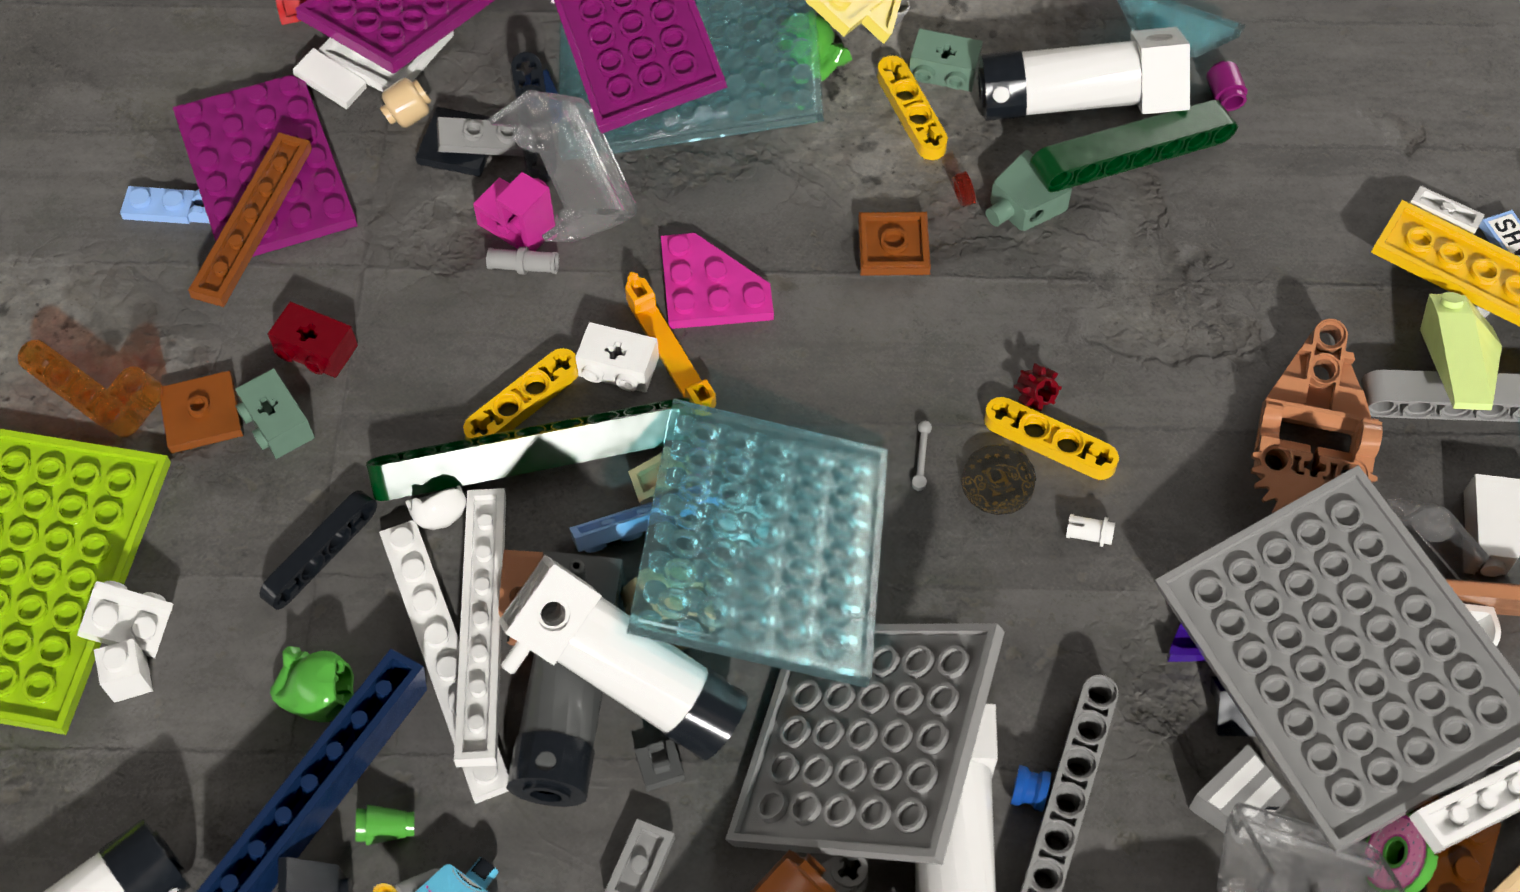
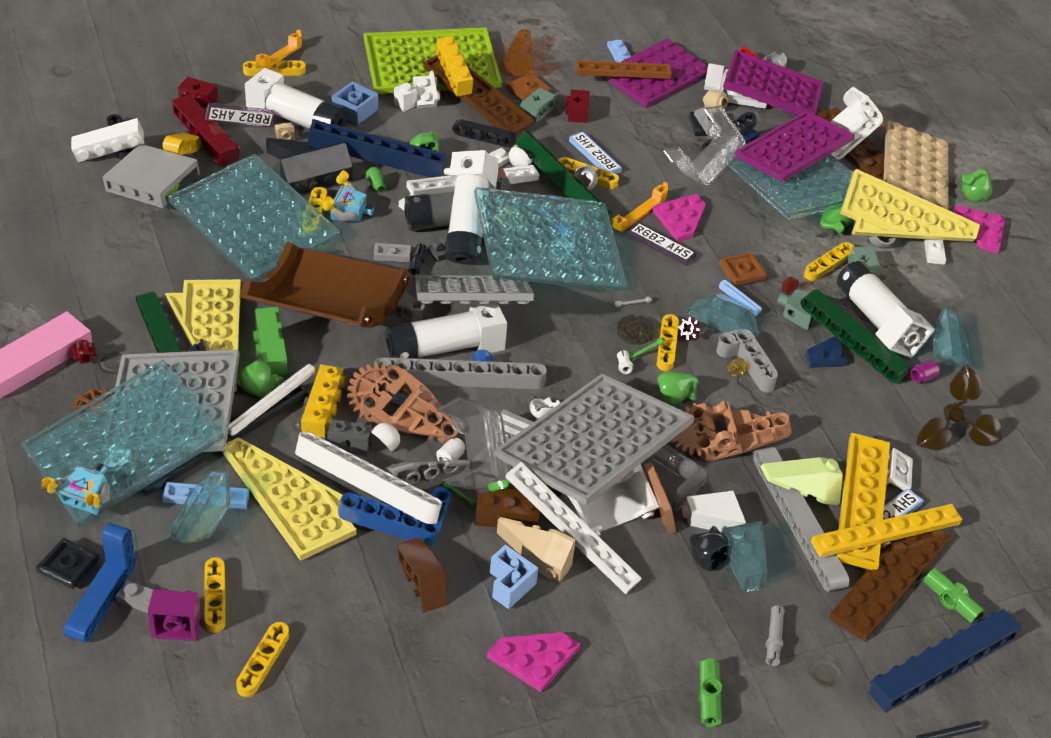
camera: 65 degrees right, 15 degrees down
(99, 789) = (357, 102): none -> medium blue brick
(106, 530) = (454, 66): none -> yellow brick
(186, 517) = (486, 100): none -> reddish brown plate
(466, 365) = (594, 153): none -> tile
(516, 211) = (680, 138): dark pink brick -> none
(522, 260) = (656, 155): light grey pin -> none
(552, 403) = (586, 176): none -> light grey hair
(617, 357) = (623, 193): white brick -> none
(677, 817) = (417, 259): none -> black axle
(776, 347) = (662, 243): none -> tile
(965, 277) = (737, 295): none -> light blue axle
(1006, 318) = (724, 313): none -> clear light blue wedge
(1063, 450) = (632, 356): none -> bright green hinge
(1142, 205) = (826, 354): none -> dark blue wing
(1152, 350) = (737, 366): none -> clear yellow tile
(1182, 319) = (744, 344): none -> light grey beam
(1193, 713) = (539, 407): none -> white hair
(1195, 468) = (677, 387): none -> bright green piece
(1337, 85) = (985, 431): none -> dark brown plant

